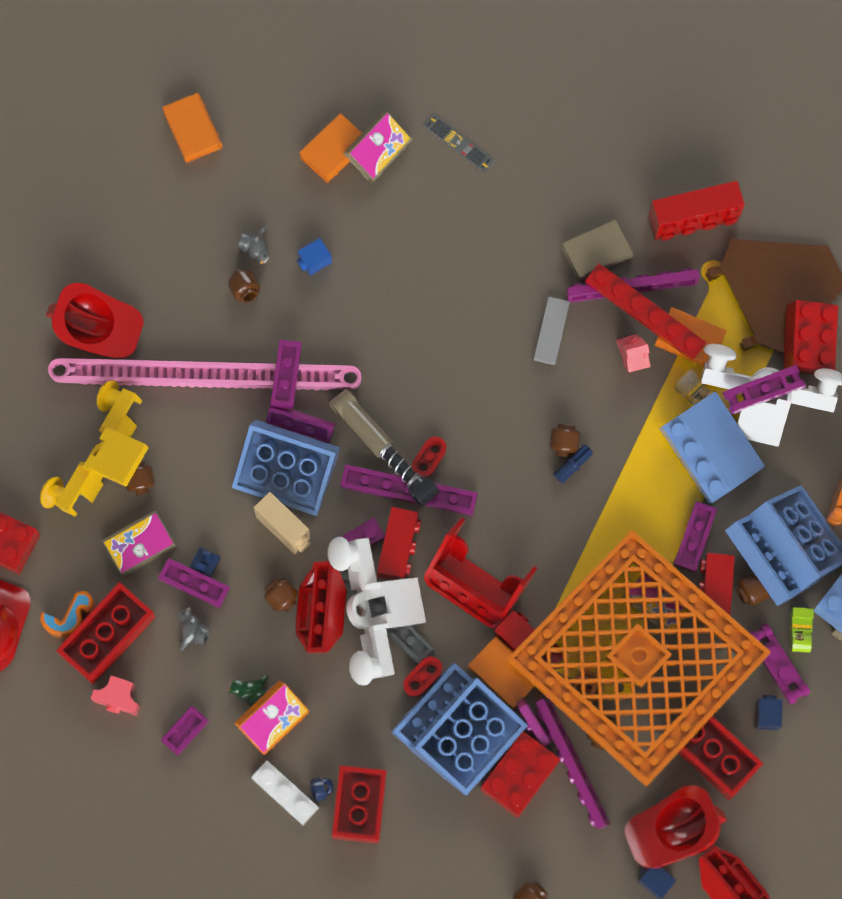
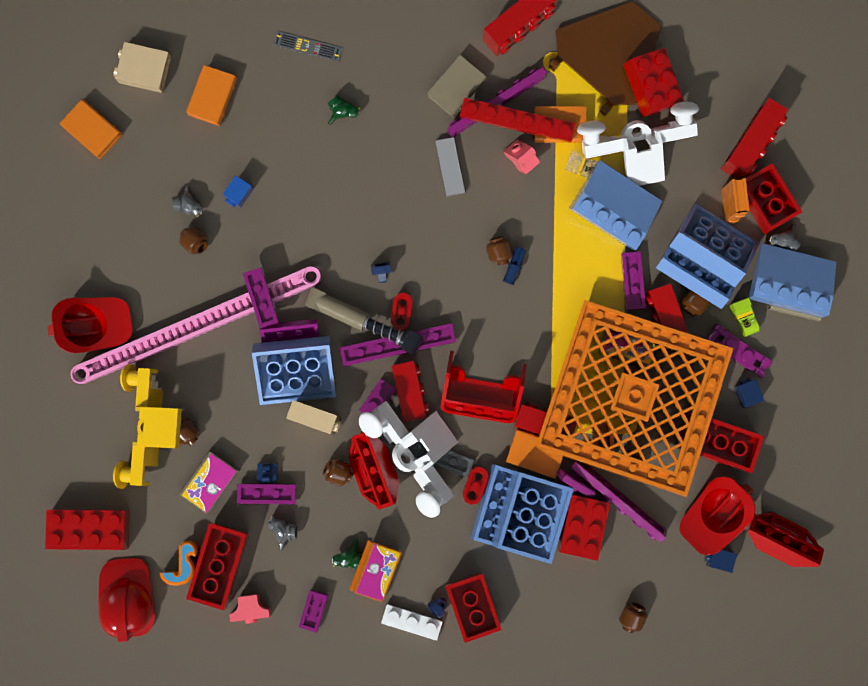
camera: 25 degrees left, 10 degrees up
(276, 88) = (142, 67): none -> tan brick
(377, 146) = (245, 79): piece -> none
(427, 405) = (381, 269): none -> dark blue tile
(464, 221) = (342, 109): none -> dark green animal
(764, 389) = (639, 142): magenta plate -> none

